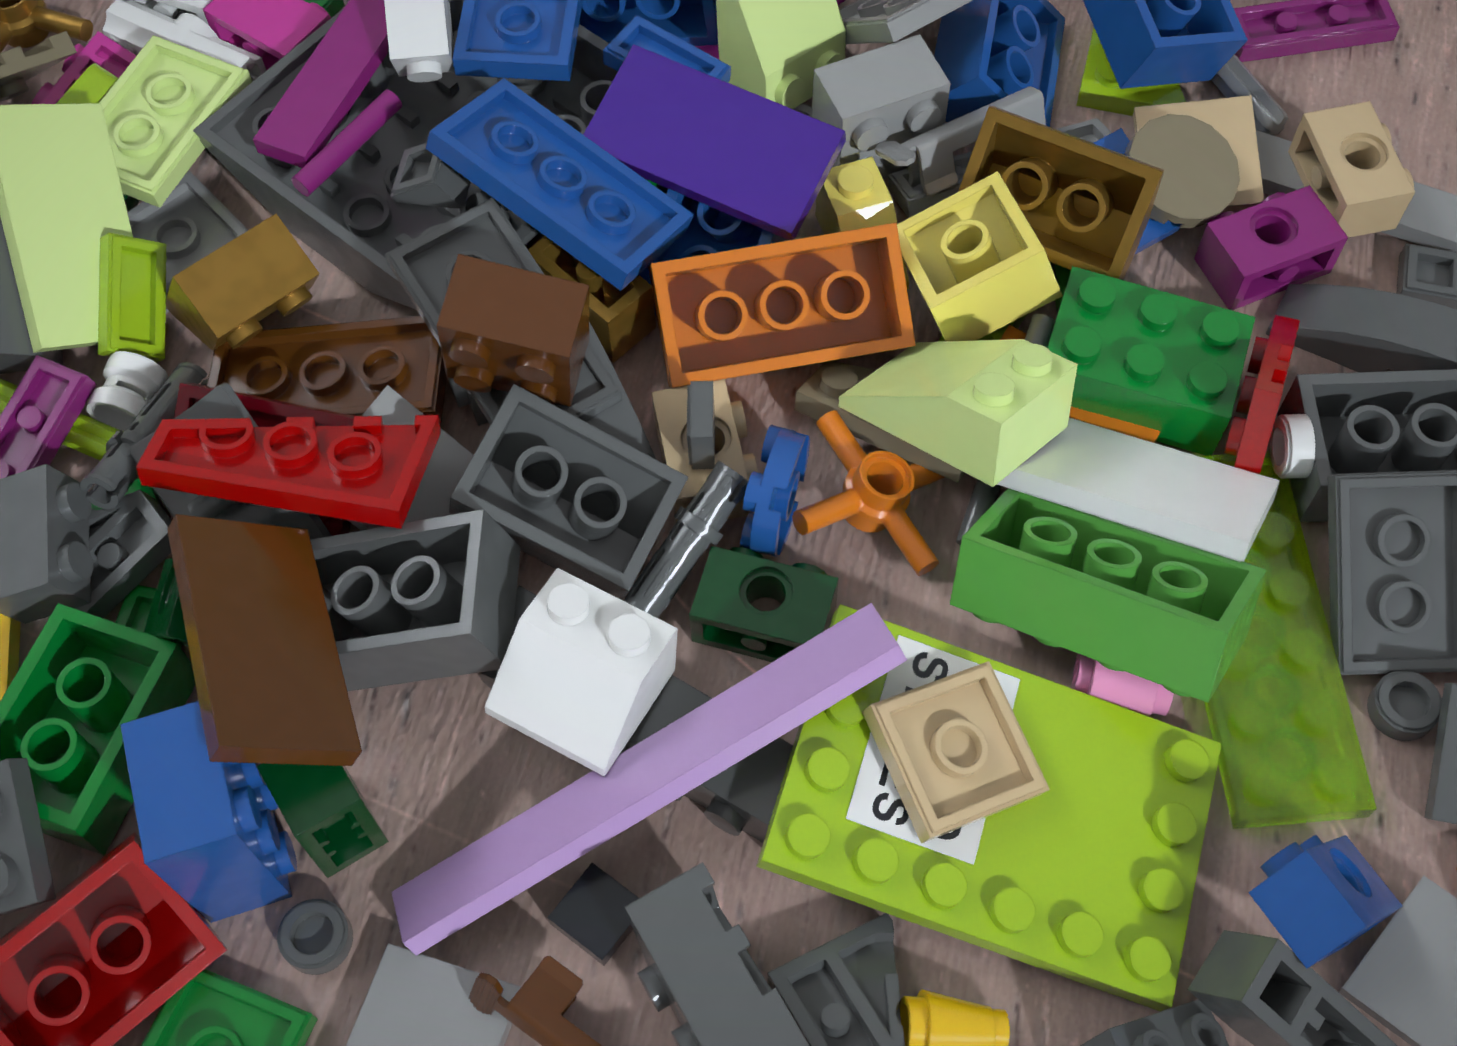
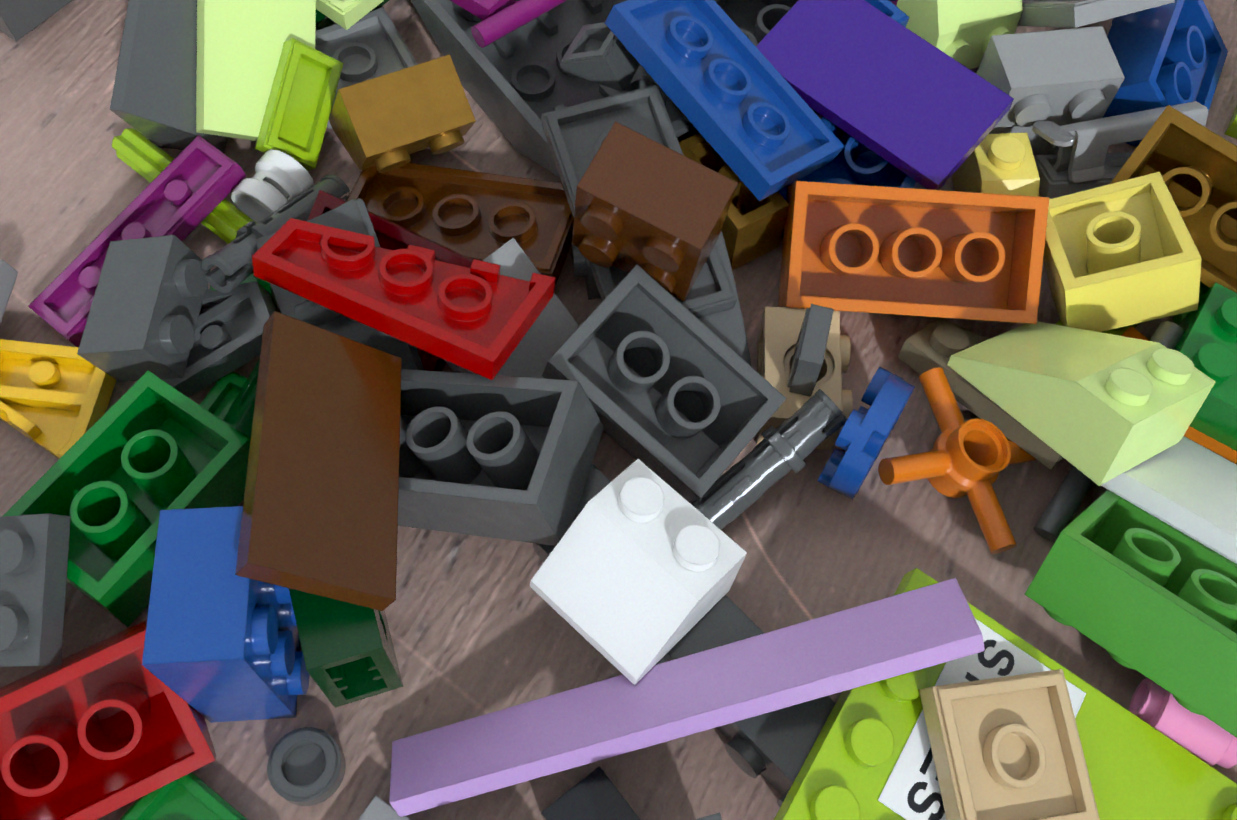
camera: 10 degrees right, 0 degrees up
(739, 576) = (791, 551): dark green brick -> none

